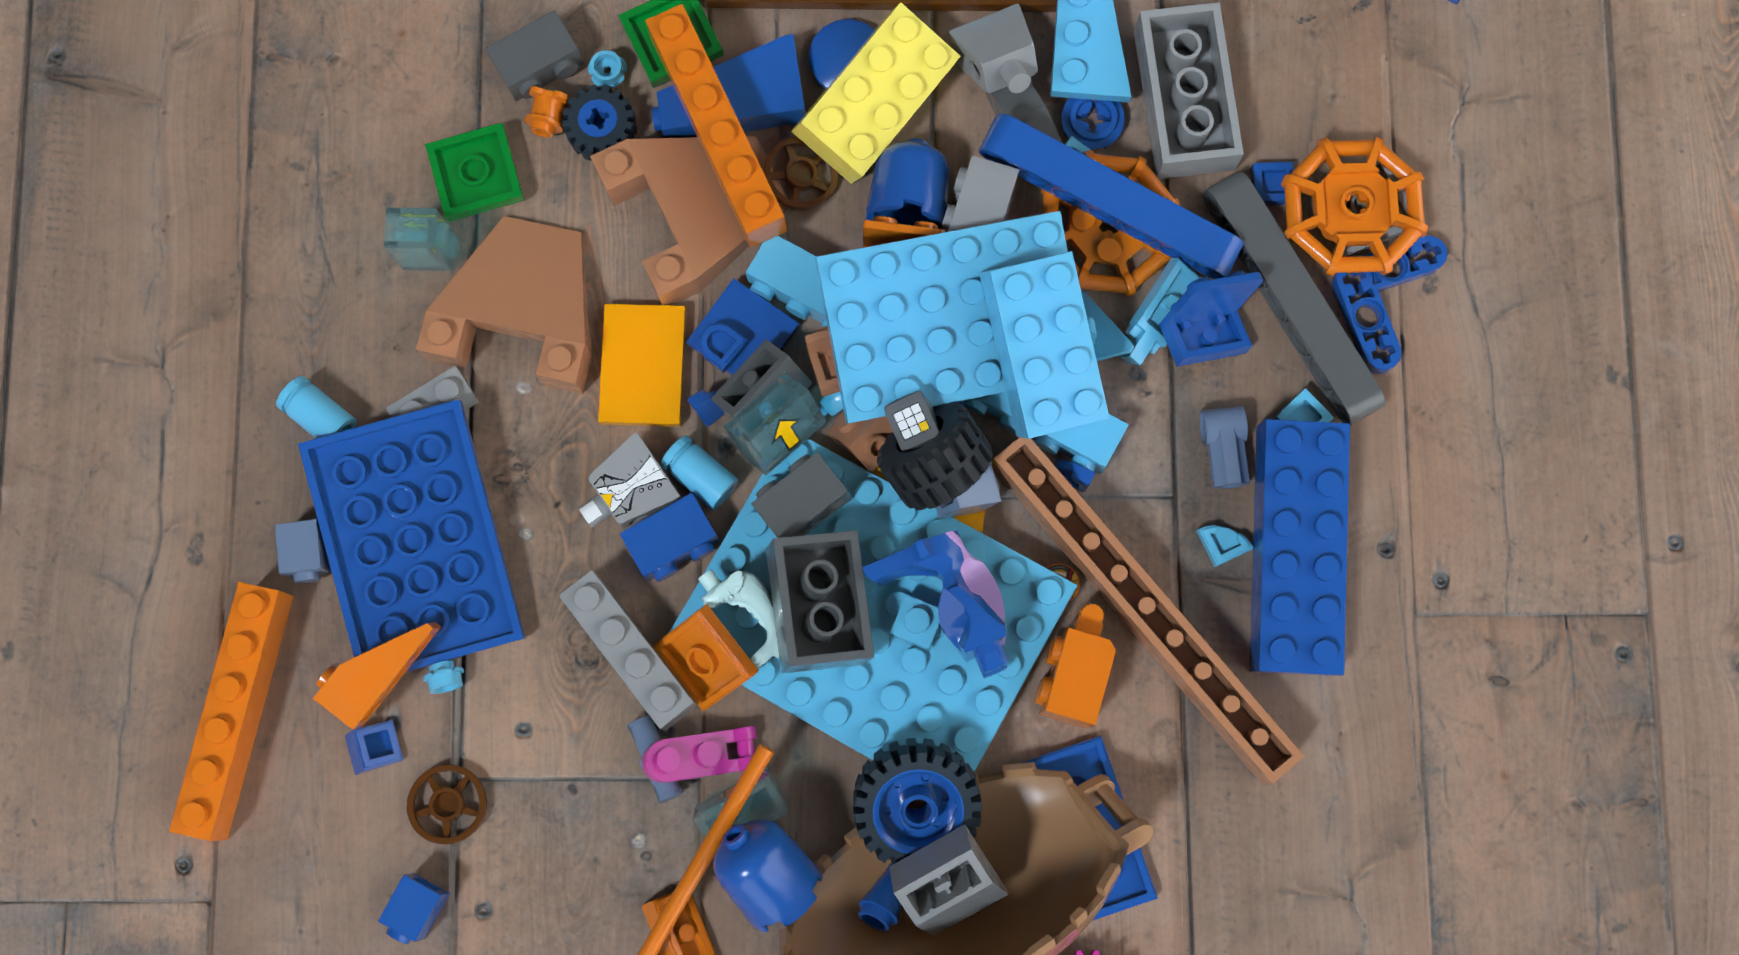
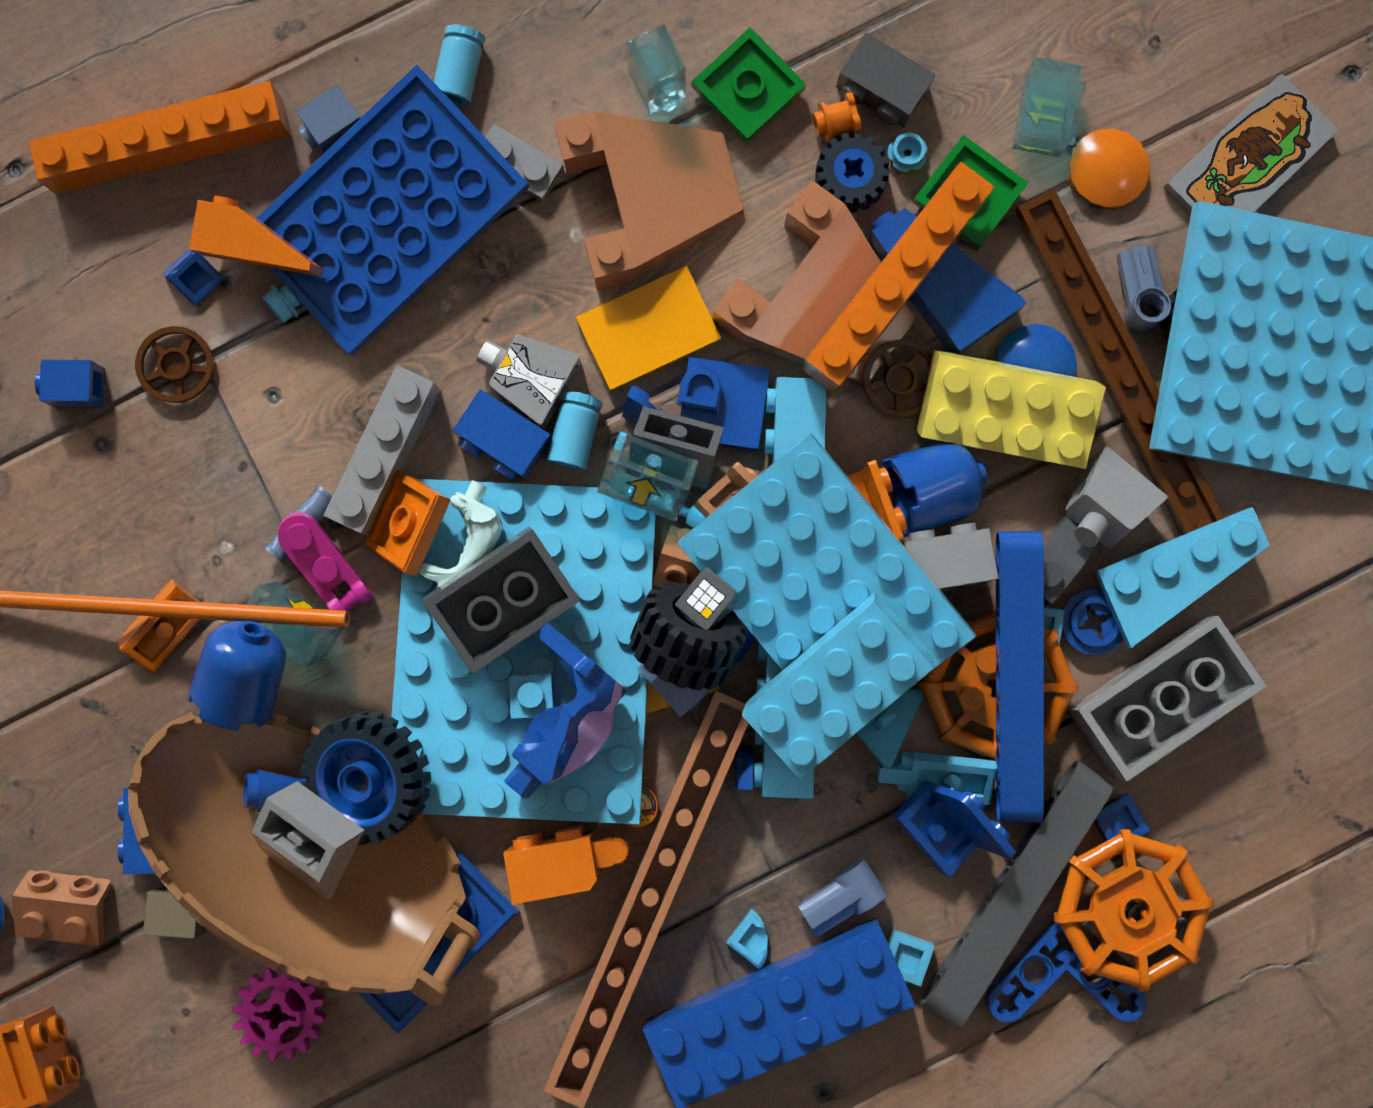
camera: 60 degrees right, 5 degrees up
(801, 498) = (591, 534): dark grey brick -> none

